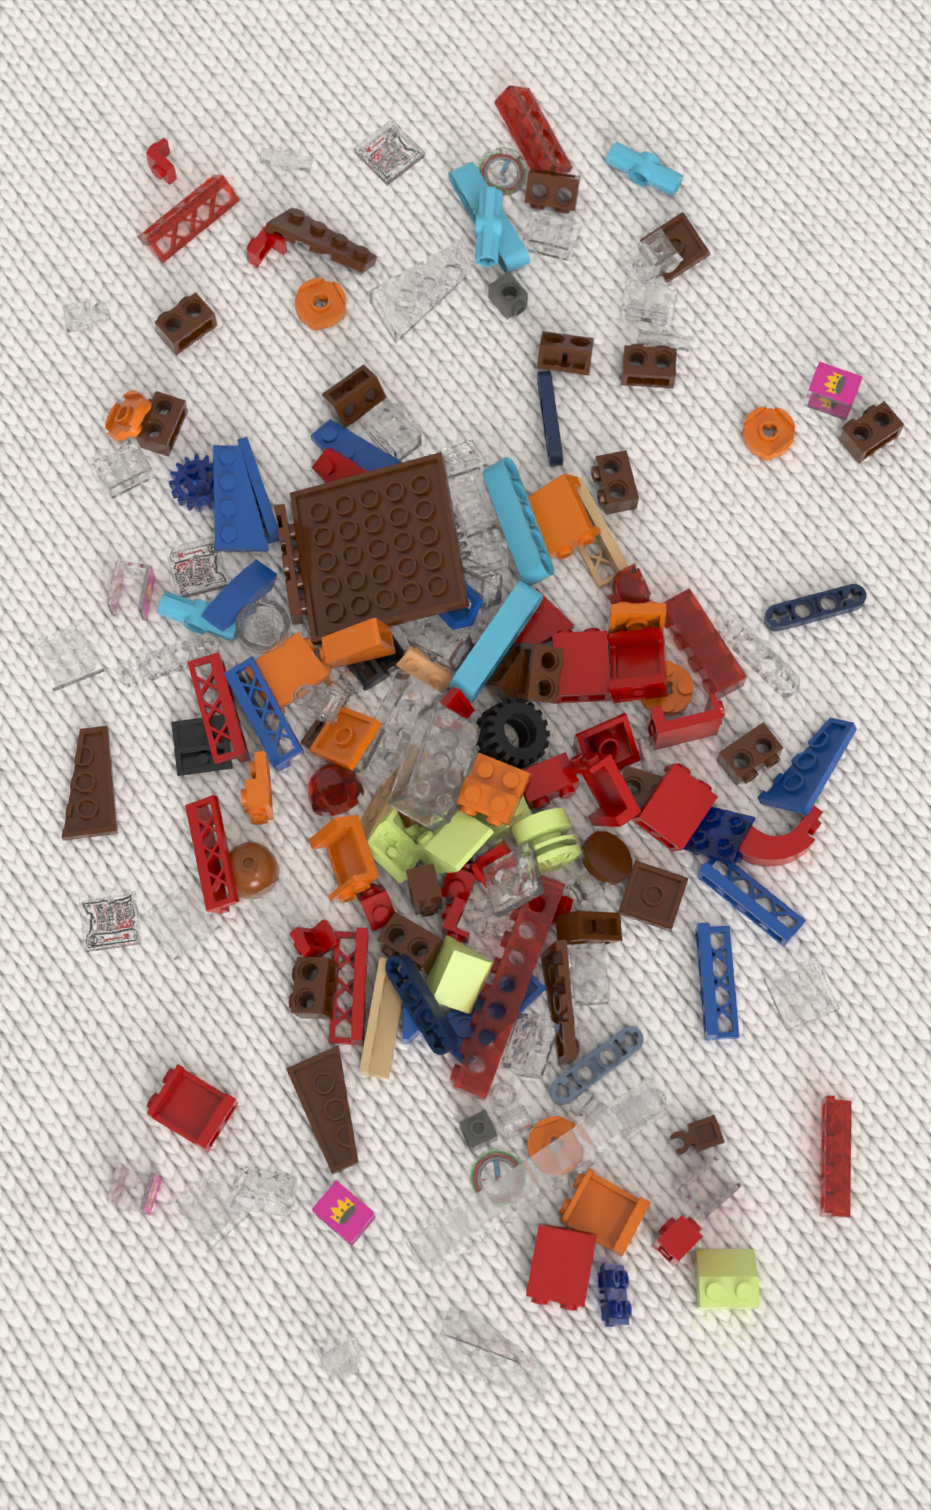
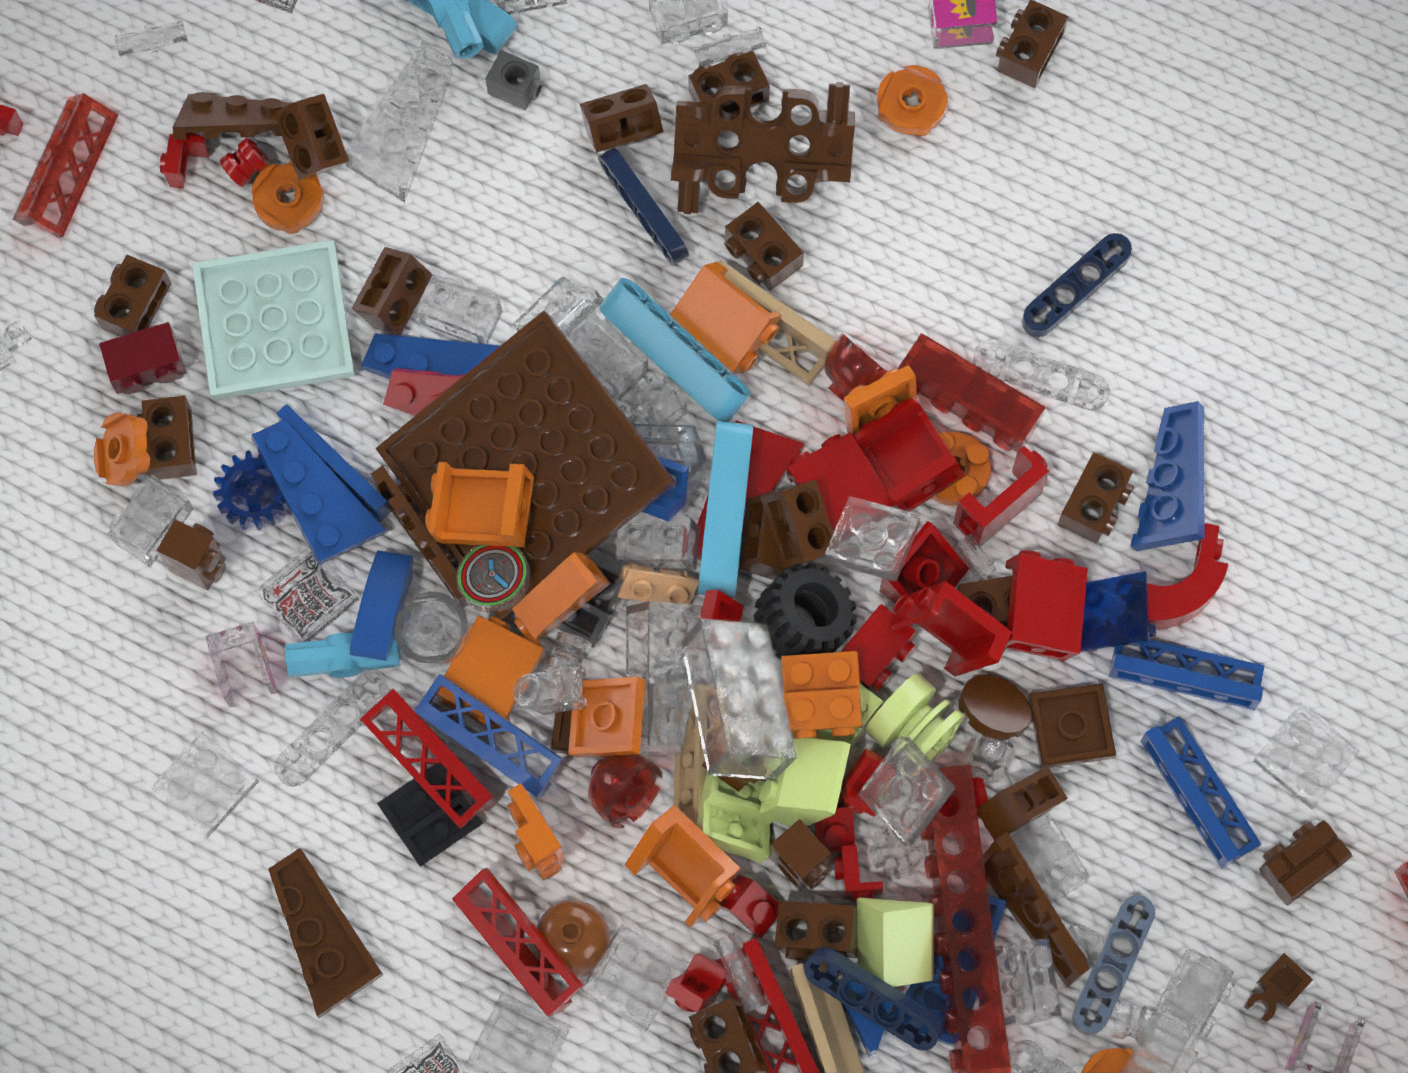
camera: 25 degrees left, 0 degrees up
(136, 504) = (192, 554): none -> reddish brown brick
(172, 364) = (142, 358): none -> dark red brick
(269, 379) = (273, 320): none -> light aqua plate
(303, 268) = (244, 162): none -> red wheel
(319, 610) = (493, 577): none -> tile
(334, 560) = (480, 506): none -> orange panel
(345, 945) = (739, 973): none -> clear pin
(352, 270) = (311, 136): none -> reddish brown brick
(581, 706) = (872, 538): none -> clear plate
(605, 402) = (701, 155): none -> reddish brown gear
(761, 1062) = (1305, 861): none -> reddish brown brick

